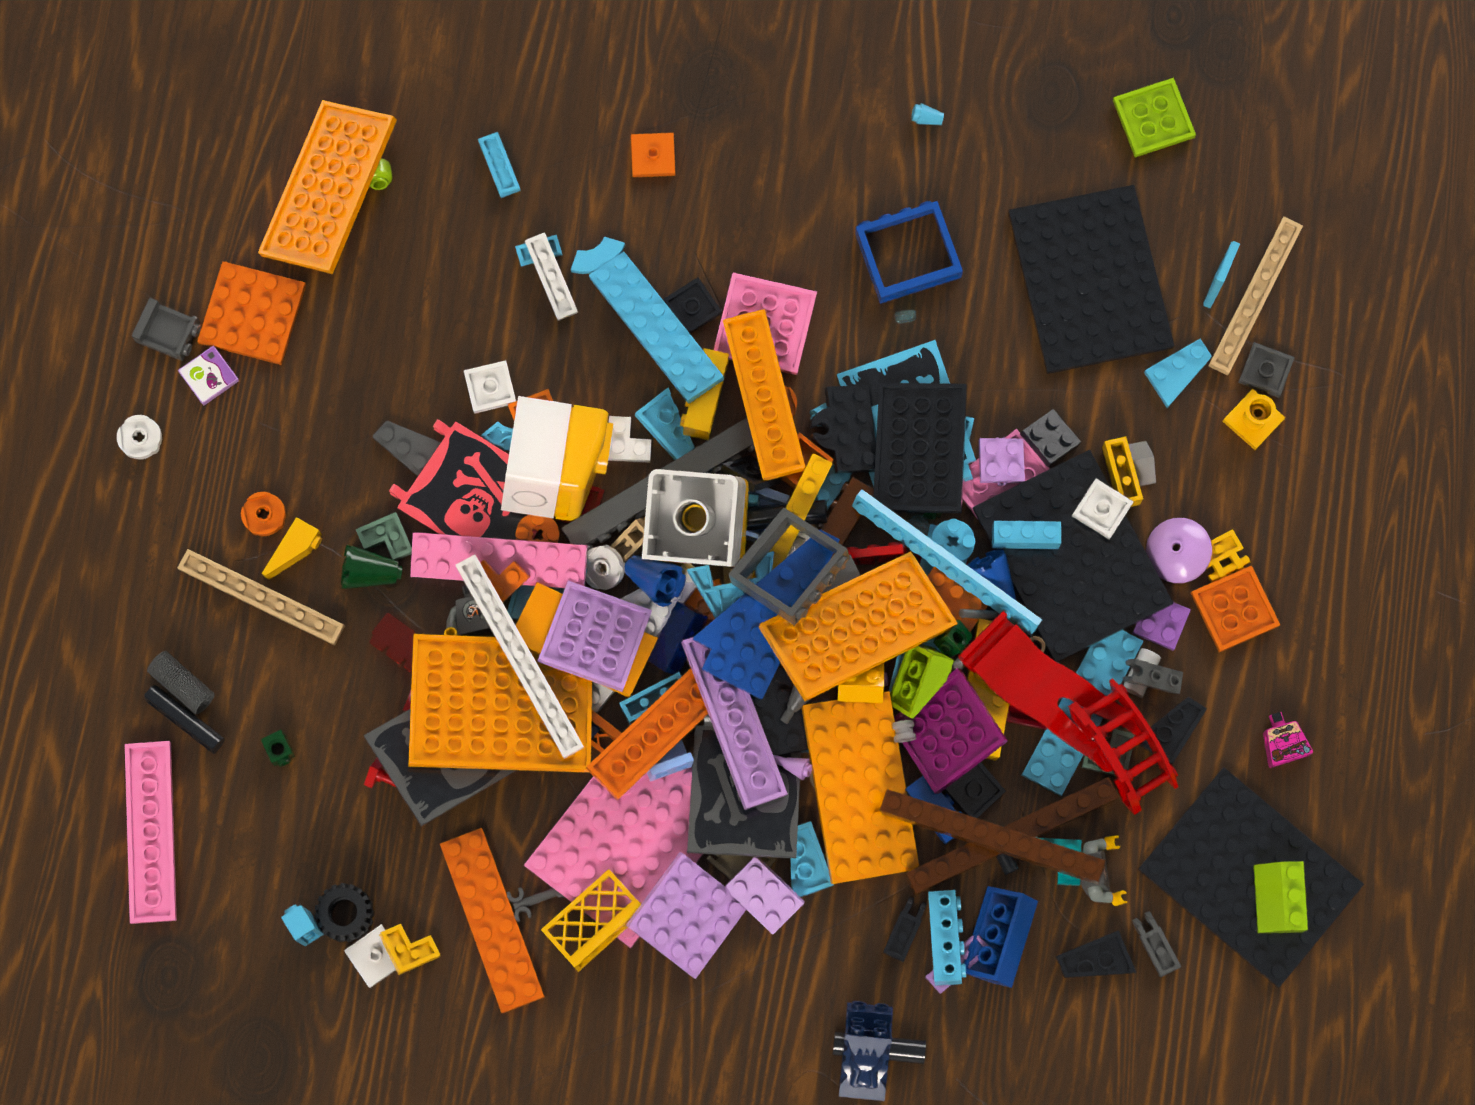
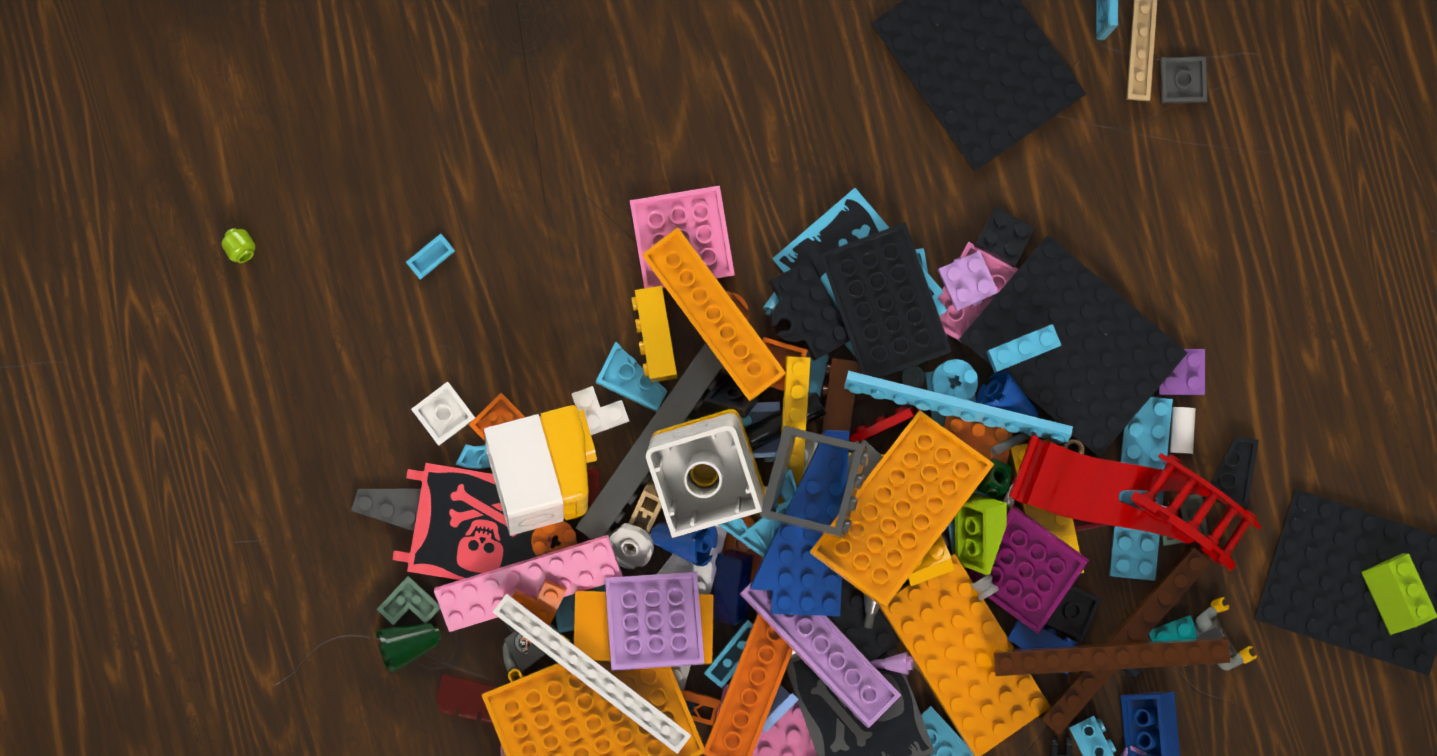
camera: 30 degrees left, 10 degrees up
(149, 445) = (113, 602): white plate -> none
(166, 330) = (103, 489): dark grey panel -> none
(208, 375) = (164, 517): tile -> none
(251, 313) = (178, 436): orange plate -> none
(253, 507) = (267, 630): orange plate -> none
(261, 597) = (315, 712): tan plate -> none
(296, 545) = (326, 646): yellow slope -> none
(327, 186) = (196, 281): light orange plate -> none
(499, 164) = (353, 186): medium azure plate -> none
(551, 276) = (454, 279): white plate -> none
(590, 260) = (492, 239): medium azure tile -> none
(653, 155) = (499, 111): orange plate -> none
(656, 327) = (579, 288): medium azure plate -> none
(693, 305) = (604, 250): black plate -> none
(905, 316) = (814, 174): clear light blue tile -> none
(919, 283) = (772, 71): blue window -> none
(1097, 958) = (1250, 719): black wing -> none
(1102, 508) = (1085, 290): white plate -> none
(1122, 469) = (1087, 243): yellow brick -> none
(1143, 462) = (1100, 224): light grey slope -> none
(1154, 676) = (1197, 431): dark grey plate -> none
(1157, 946) = (1301, 686): dark grey hinge -> none
(1176, 371) = (1099, 117): medium azure wing -> none
(1189, 560) = (1182, 284): lavender dish -> none
(1222, 548) = (1207, 281): yellow plate -> none
(1235, 609) = (1247, 331): orange plate -> none
(1247, 425) = (1182, 142): yellow plant -> none
(1284, 741) = (1343, 441): torso -> none

